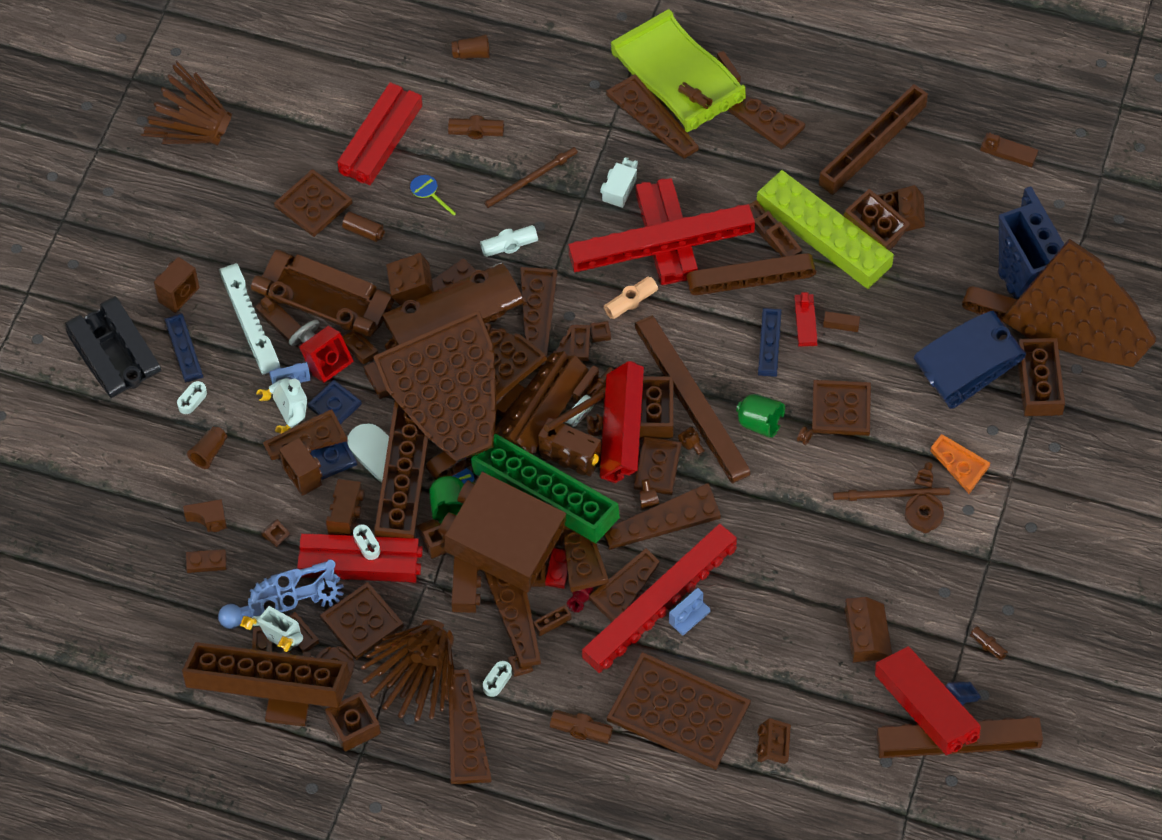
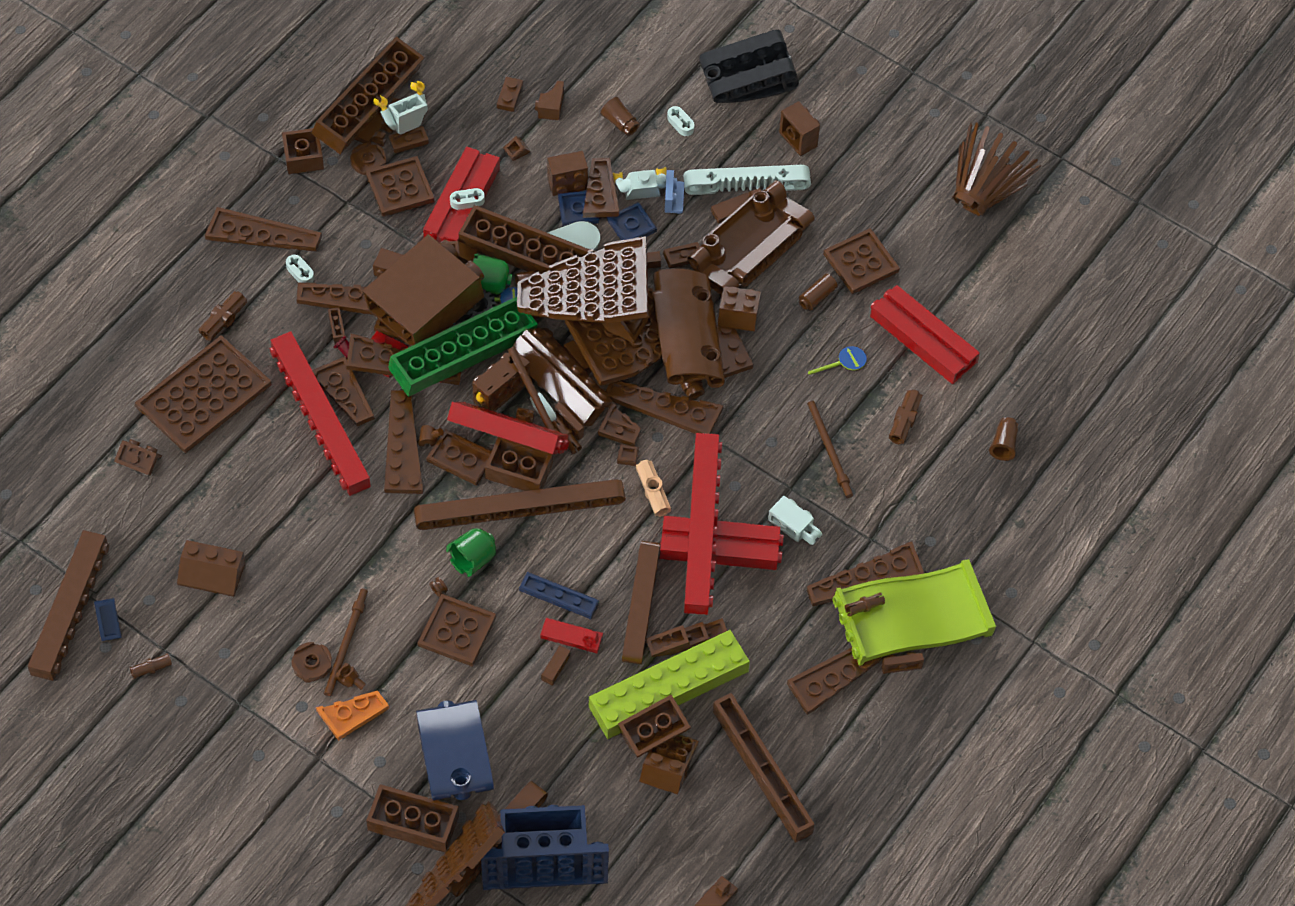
camera: 105 degrees right, 0 degrees up
(183, 348) = (736, 127): dark blue tile -> none
(232, 615) = (445, 129): medium blue arm -> none
(323, 352) = (680, 219): red piece -> none
(345, 507) = (512, 198): reddish brown wedge -> none
(426, 649) = (345, 217): reddish brown plant -> none
(509, 241) = (758, 406): light aqua piece -> none
(688, 612) = (293, 429): medium blue bracket -> none
(691, 439) = (474, 490): reddish brown piece -> none
(927, 700) = (122, 579): red brick -> none

